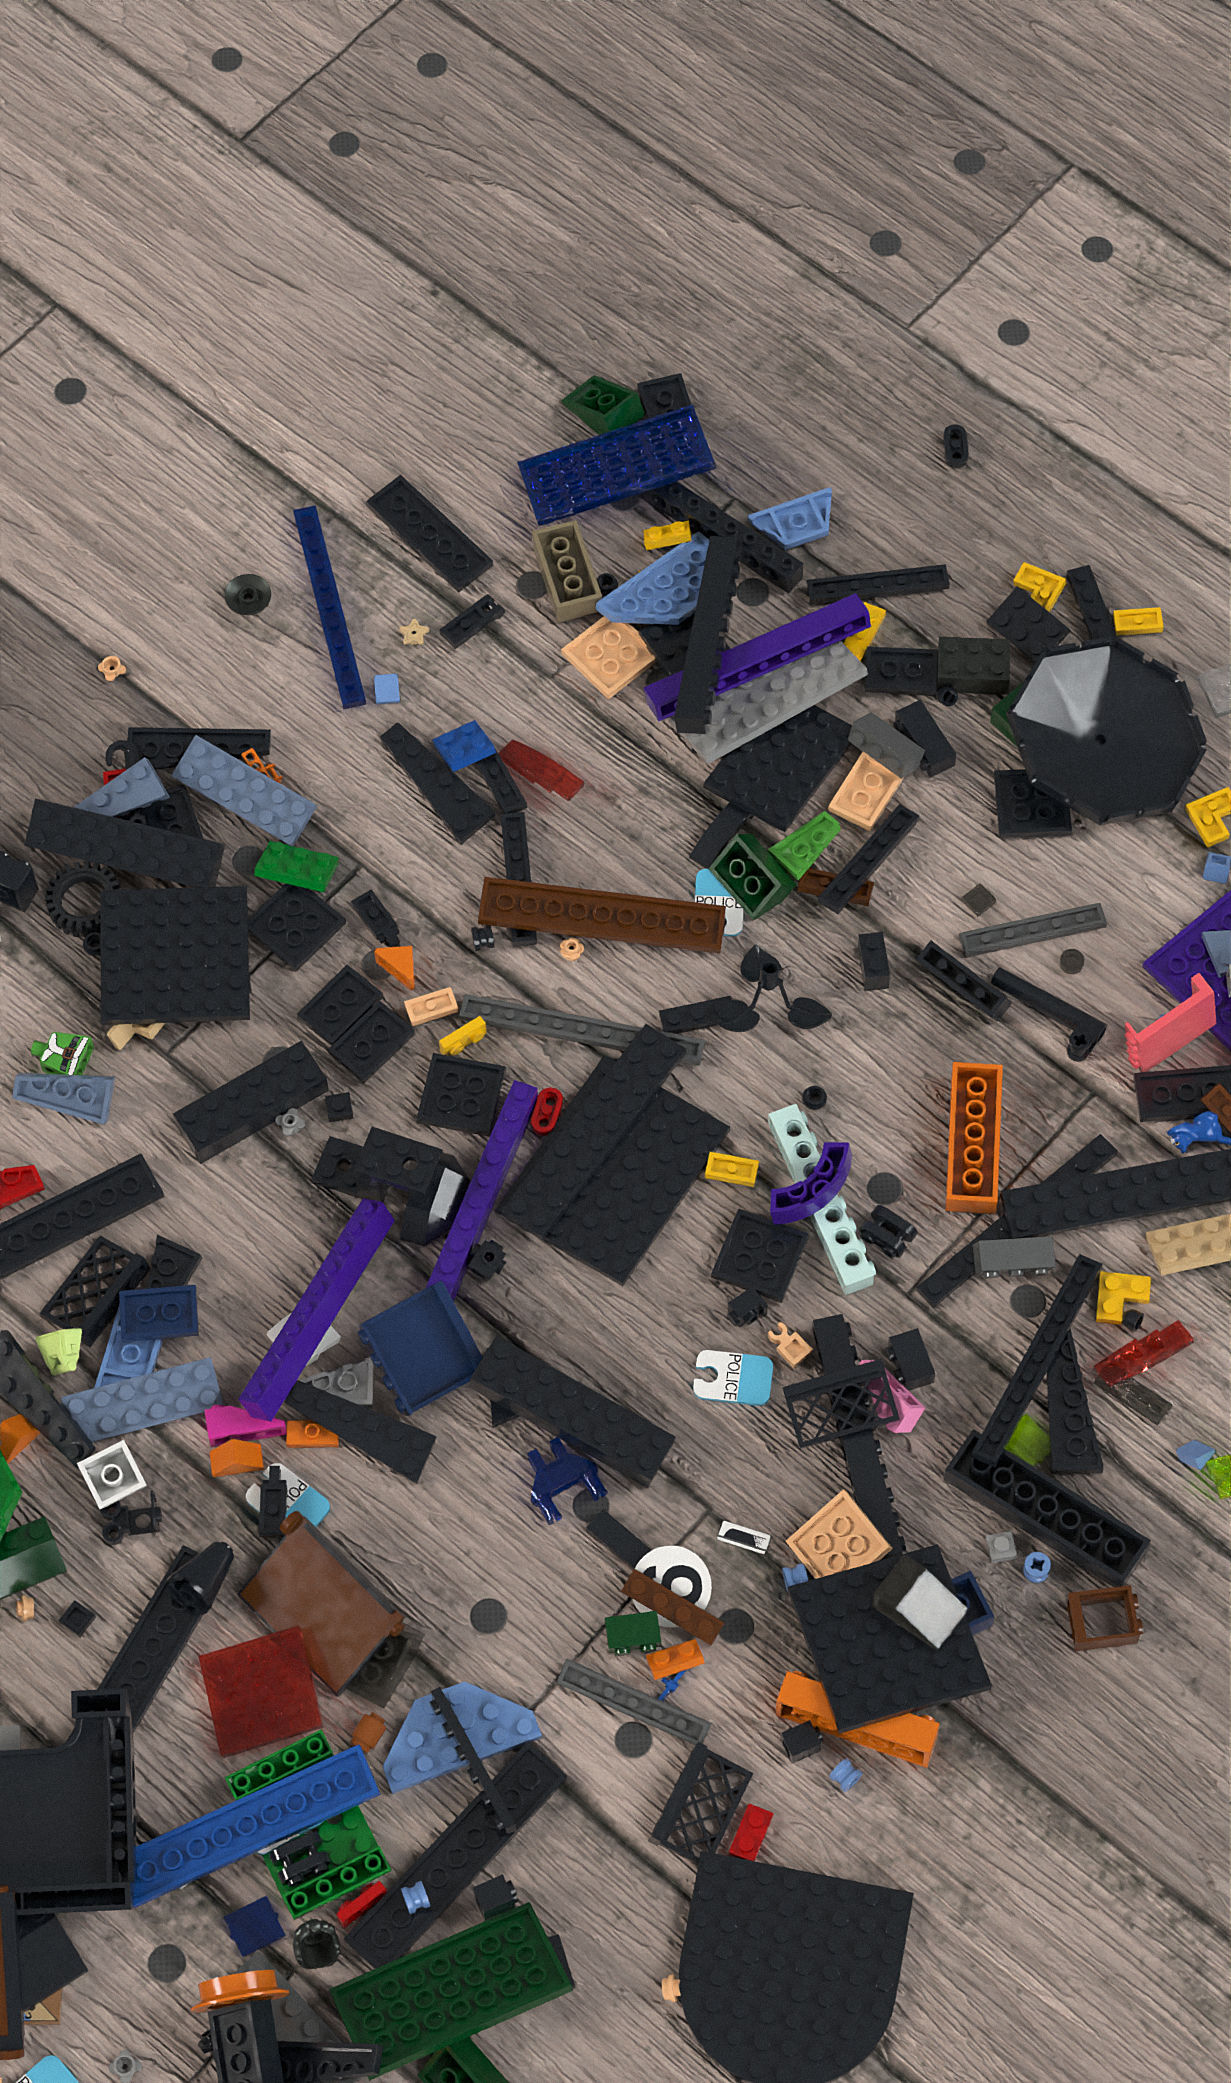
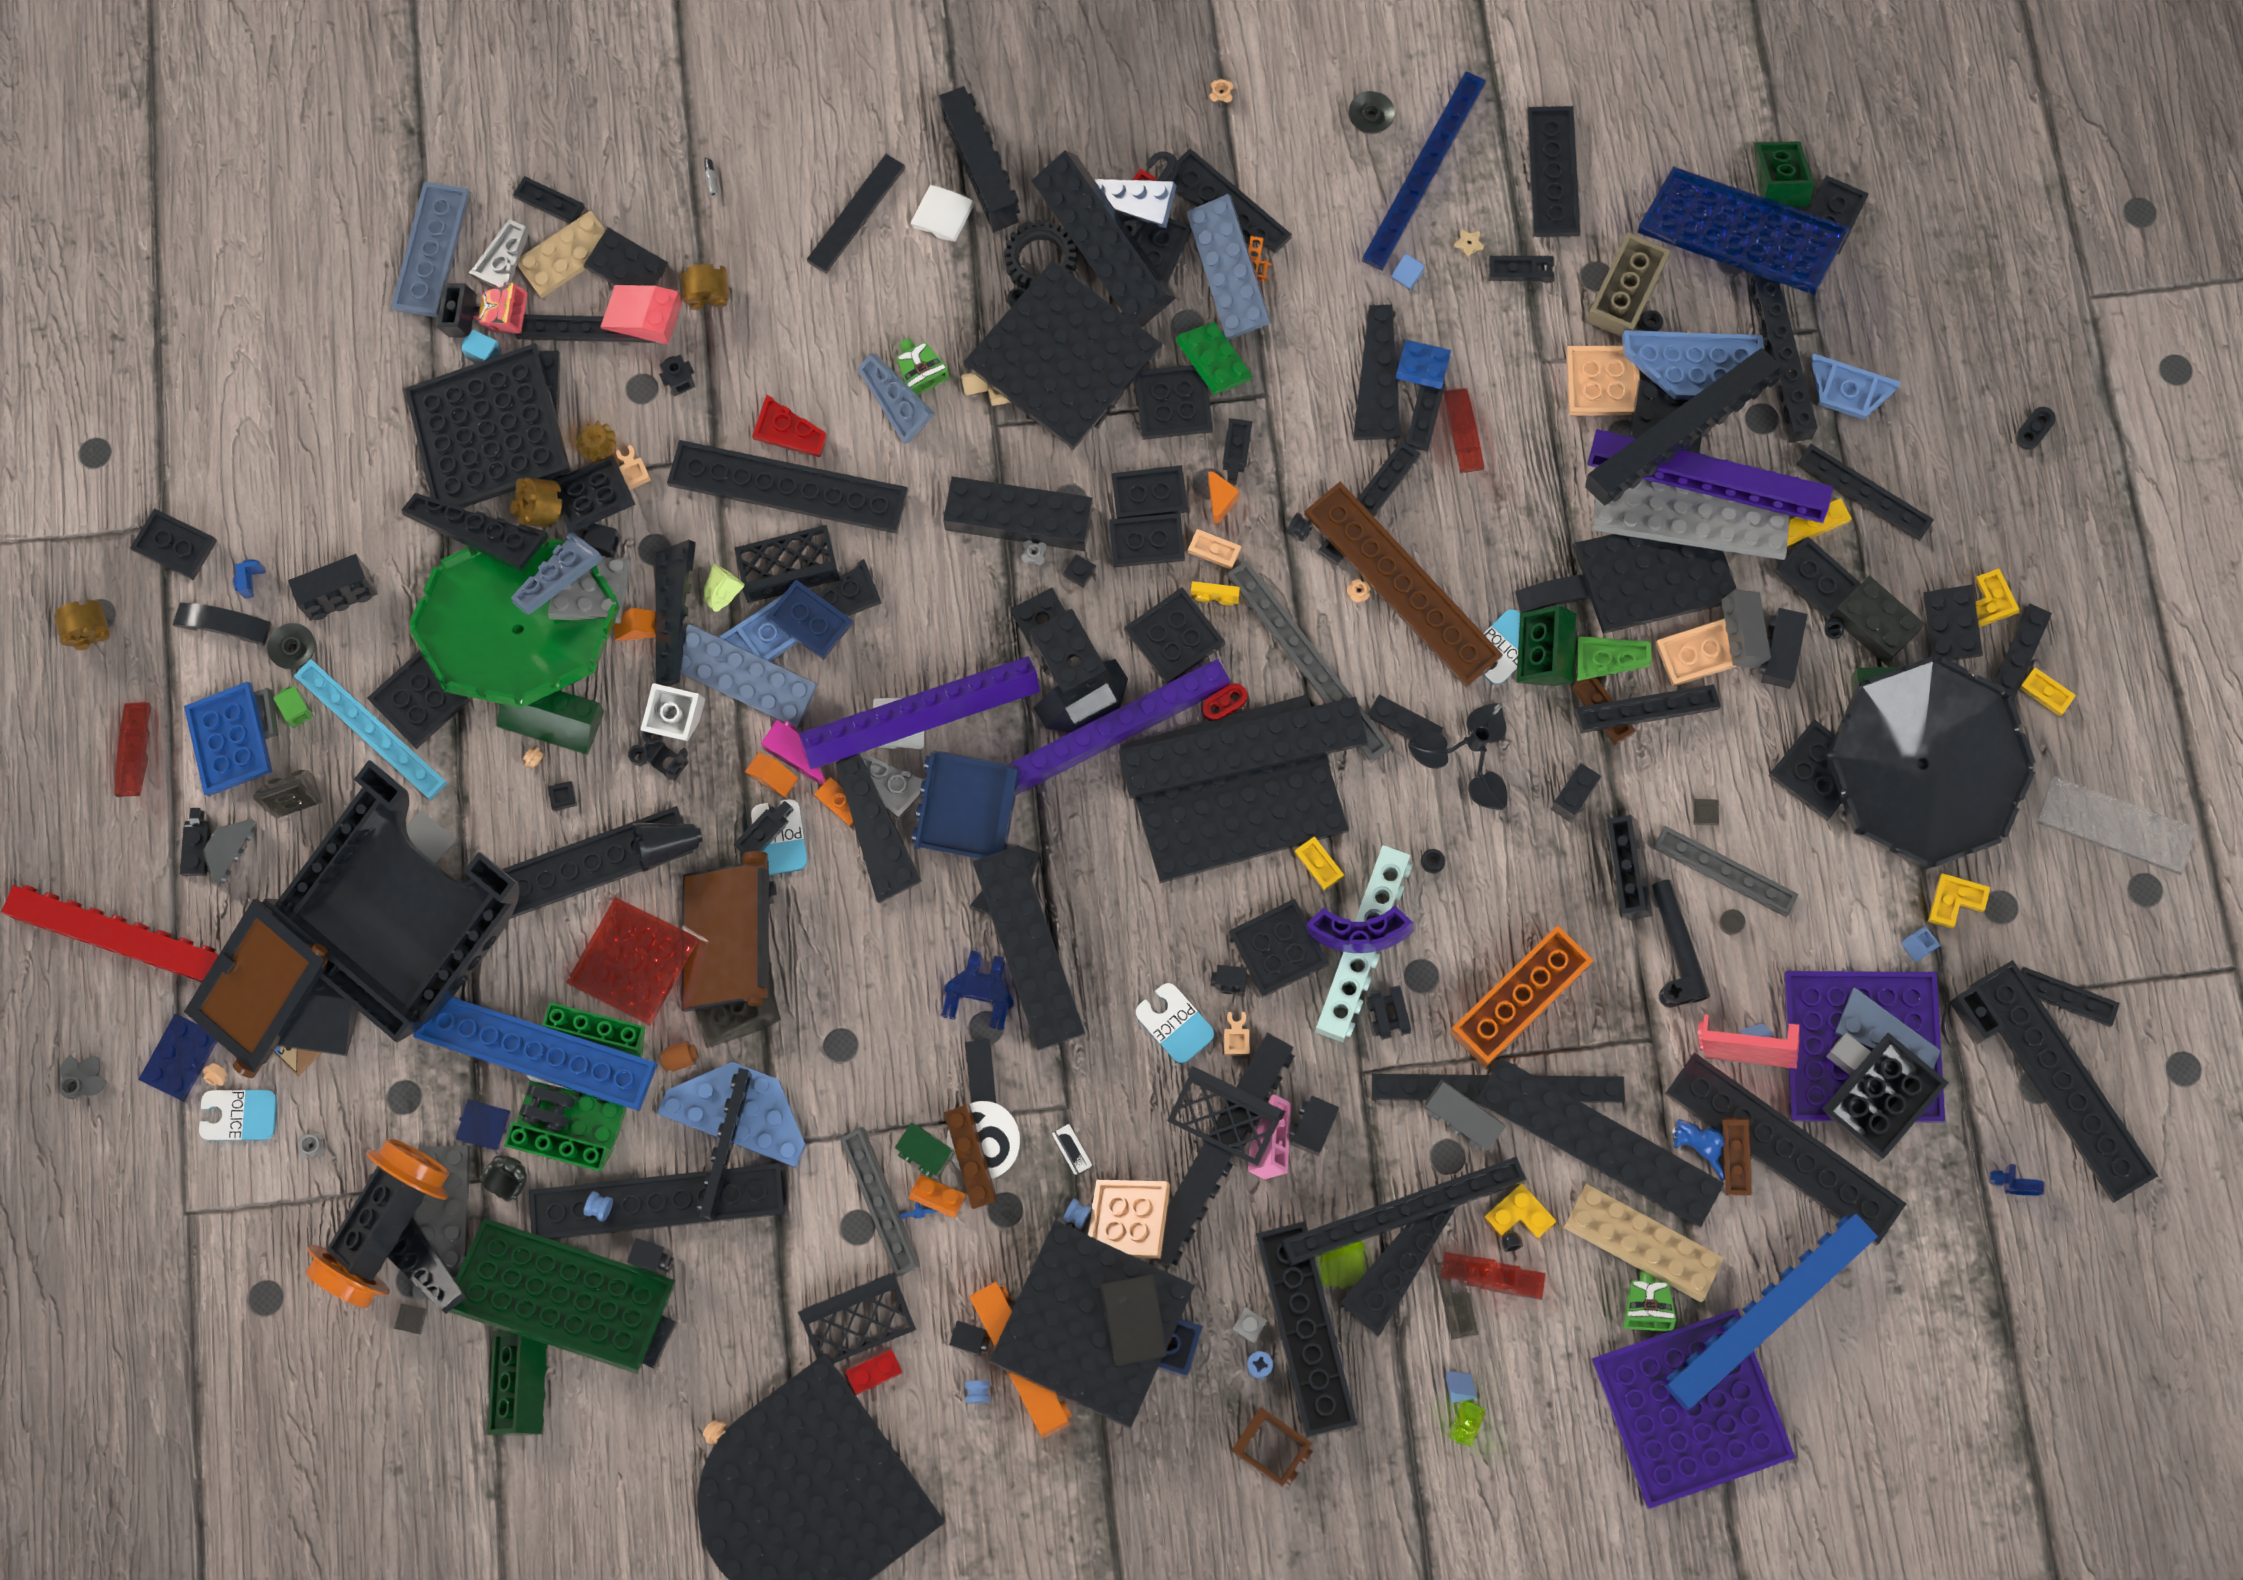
camera: 45 degrees right, 10 degrees up
(352, 1910) = (552, 1174): red plate -> none
(480, 1266) = (1067, 781): black brick -> none
(667, 535) = (1734, 319): yellow plate -> none

